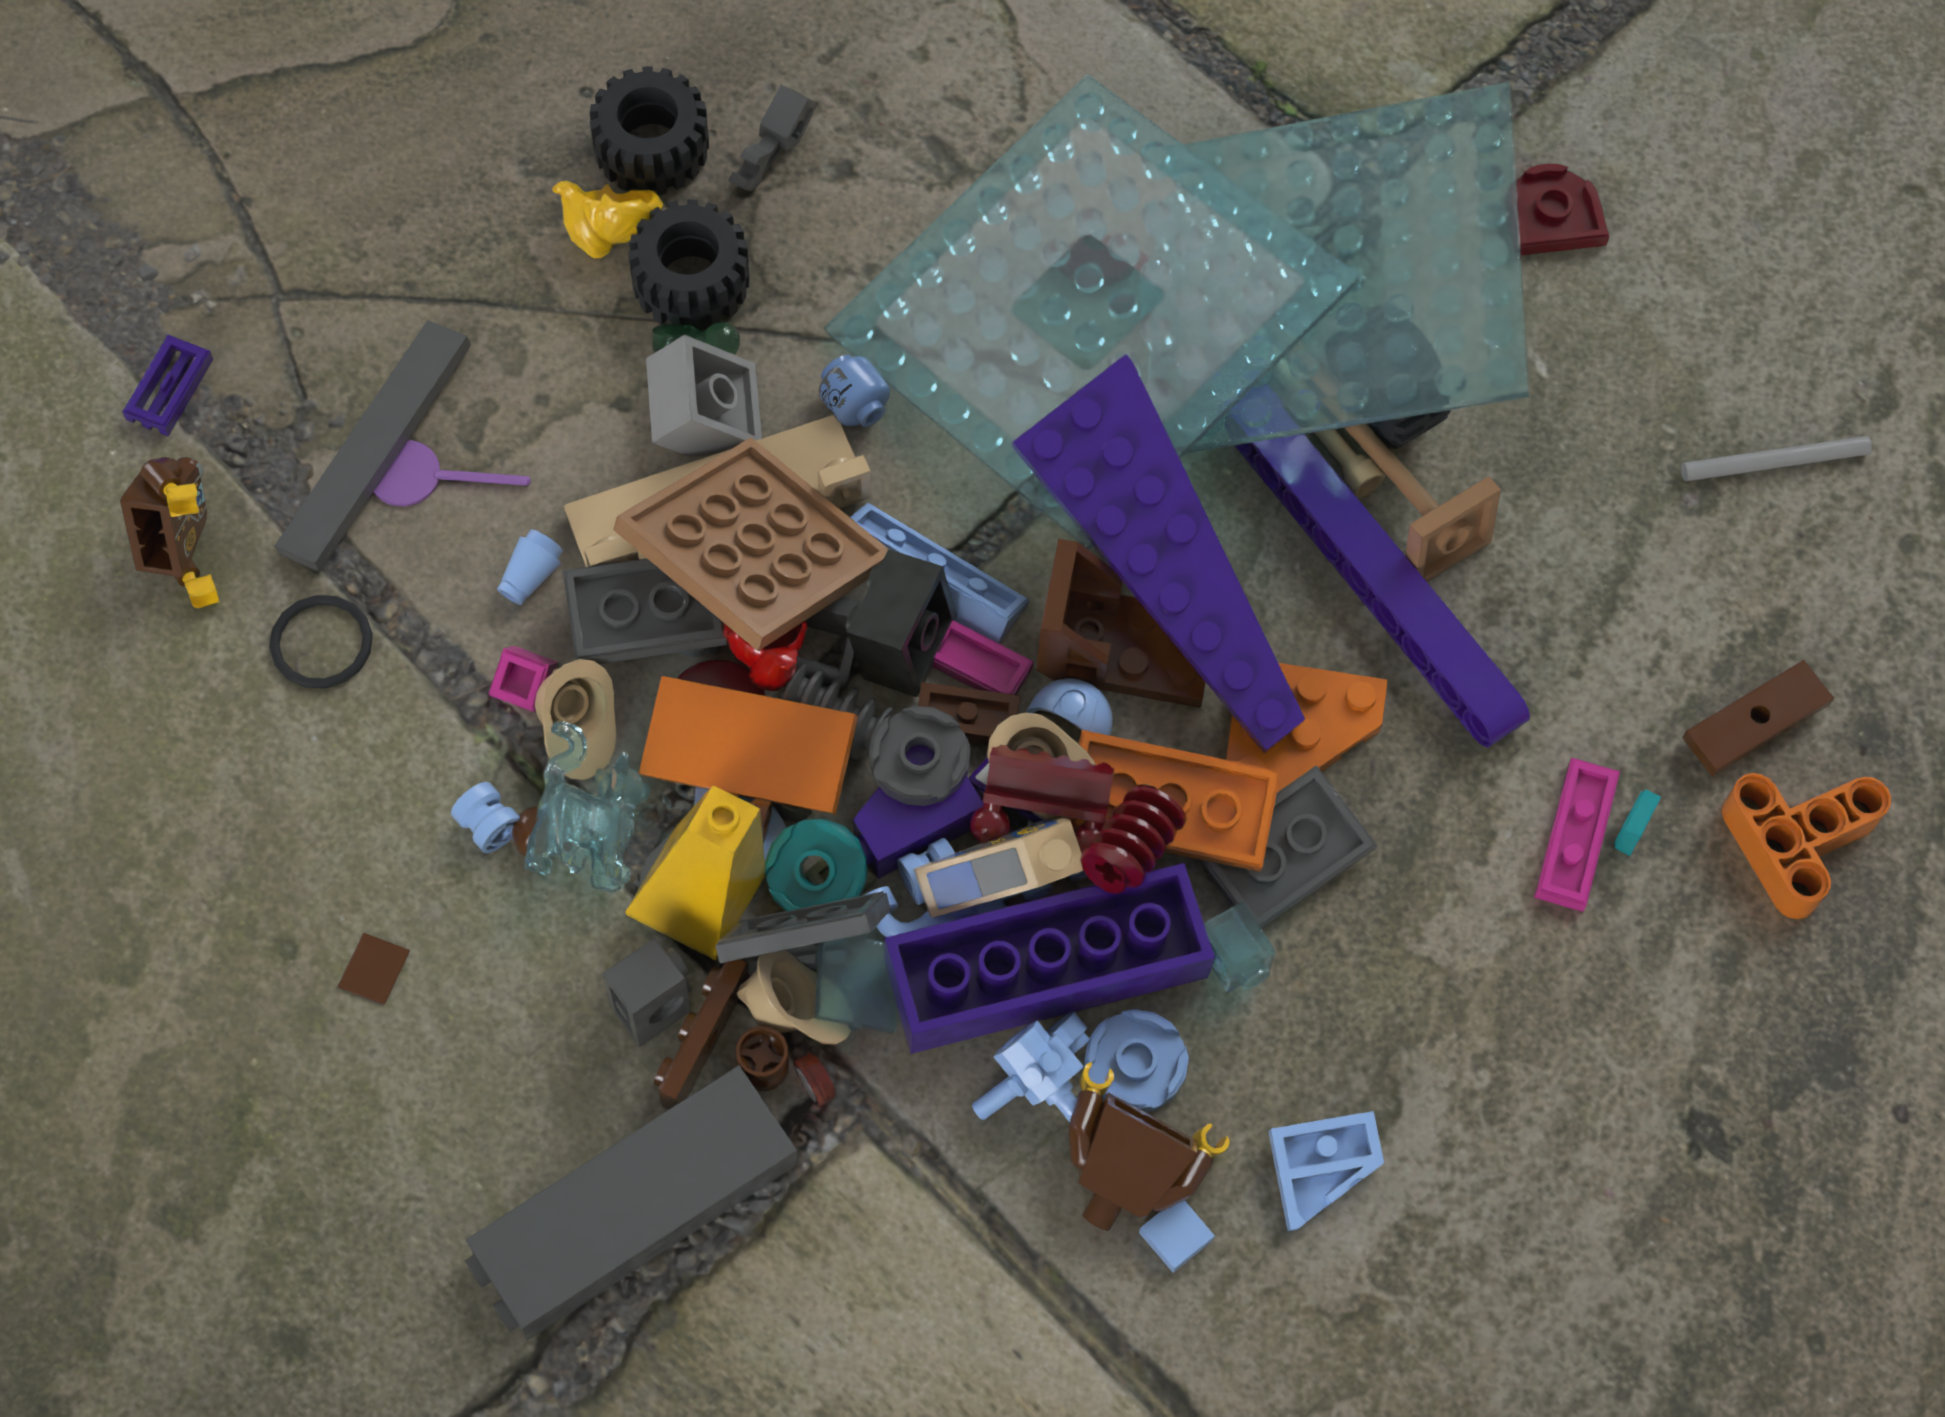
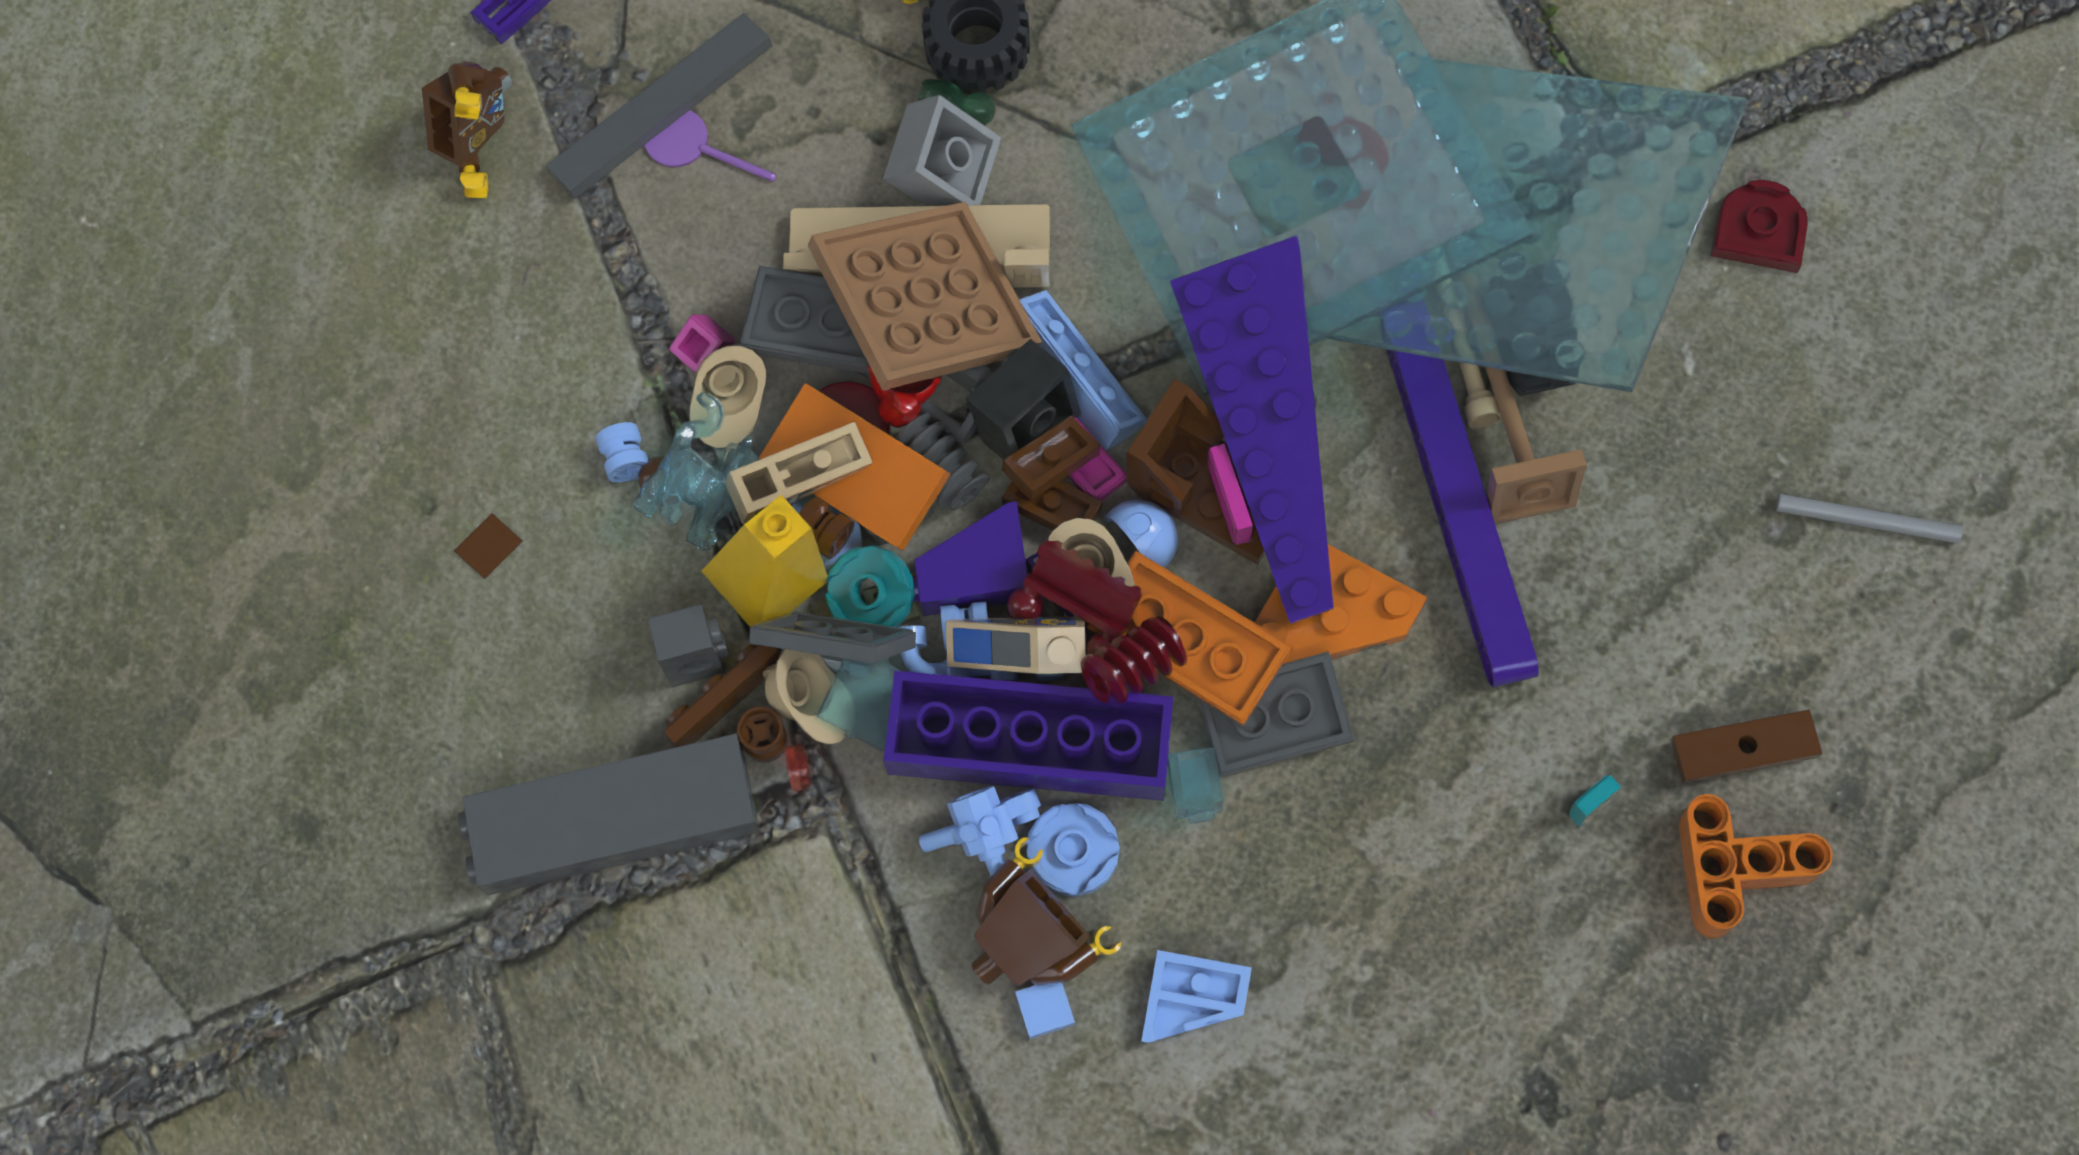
camera: 30 degrees right, 5 degrees up
(333, 680) = (567, 291): black piece -> none
(529, 566) = (742, 251): light blue cone -> none
(691, 770) = (797, 470): none -> tan slope
(854, 391) = (1071, 189): medium blue head -> none
(919, 783) = (996, 549): dark grey tile -> none
(951, 667) = (1051, 457): none -> reddish brown plate
(1152, 642) = (1229, 494): none -> dark pink tile
(1577, 834) = (1539, 791): dark pink tile -> none

